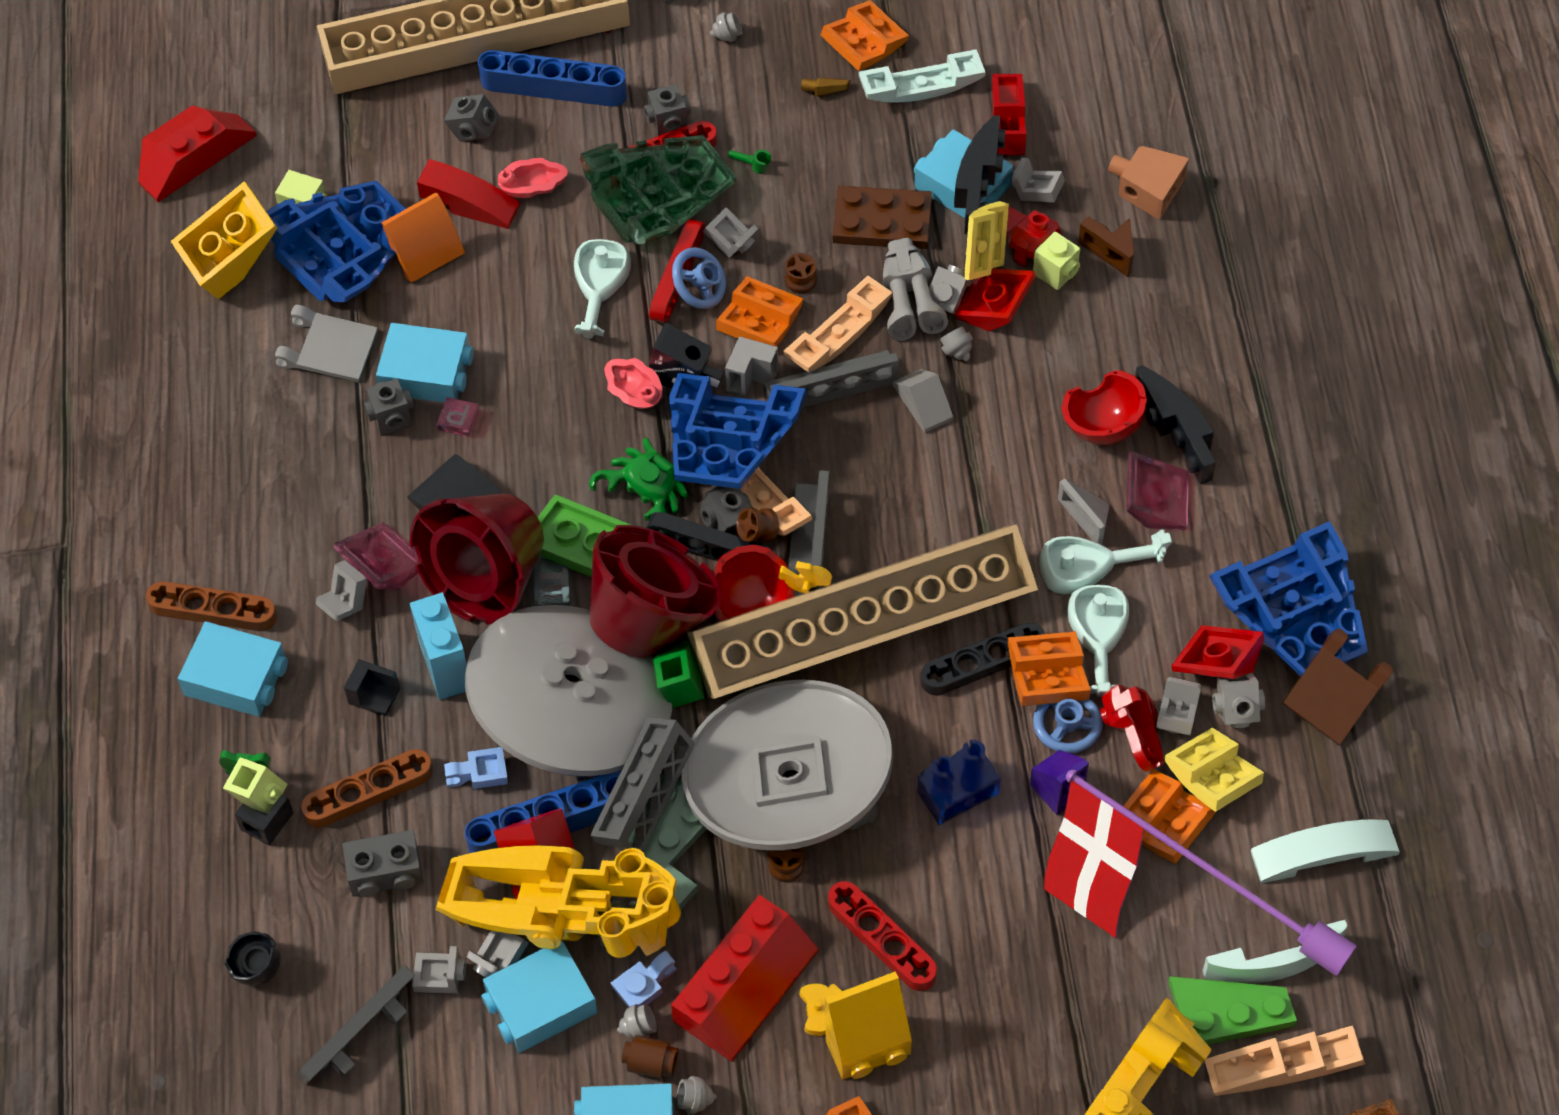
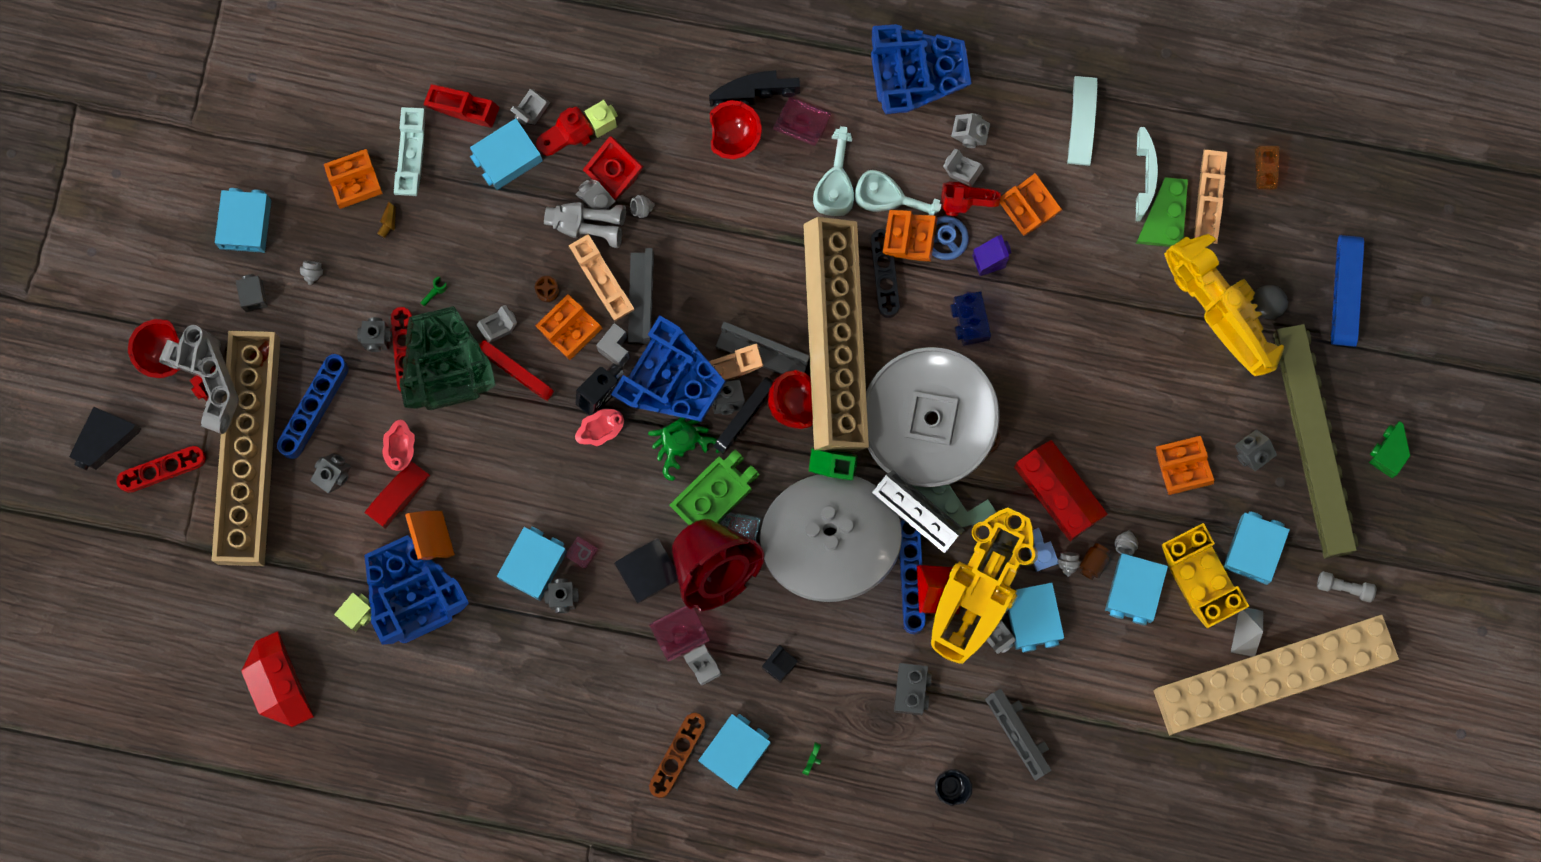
camera: 70 degrees left, 20 degrees up
(226, 241) = (386, 672): yellow slope -> none
(255, 785) = (835, 755): yellowish green brick -> none
(262, 825) = (850, 756): black panel -> none
(331, 347) = (491, 622): light grey flag -> none
(365, 784) = (847, 686): dark orange beam -> none
(439, 972) = (997, 673): light grey bracket -> none
(440, 645) = (772, 609): medium azure brick -> none
(483, 768) = (863, 609): light blue plate -> none
(599, 271) = (493, 422): light aqua piece -> none
(647, 590) = (785, 461): dark red cone -> none
(702, 277) = (531, 352): medium blue piece -> none
(757, 524) = (750, 379): reddish brown wheel -> none
(809, 577) = (809, 361): yellow piece -> none
(814, 997) = (1091, 453): yellow piece -> none
(867, 1027) = (1124, 427): yellow slope -> none
(881, 216) = (516, 219): reddish brown plate -> none
(886, 932) = (1054, 396): red beam -> none
(924, 399) = (675, 242): light grey slope -> none
(979, 167) = (514, 139): black slope -> none
(986, 240) = (577, 157): light yellow slope -> none
(1085, 508) = (800, 169): light grey slope -> none
(1099, 856) = (1053, 249): flag -> none
(1111, 247) = (603, 77): reddish brown slope -> none
(1150, 178) = (553, 33): nougat torso -> none
(1213, 769) = (1011, 163): light yellow slope -> none
(1220, 652) = (937, 129): red slope -> none
(1332, 693) = (984, 71): reddish brown flag -> none

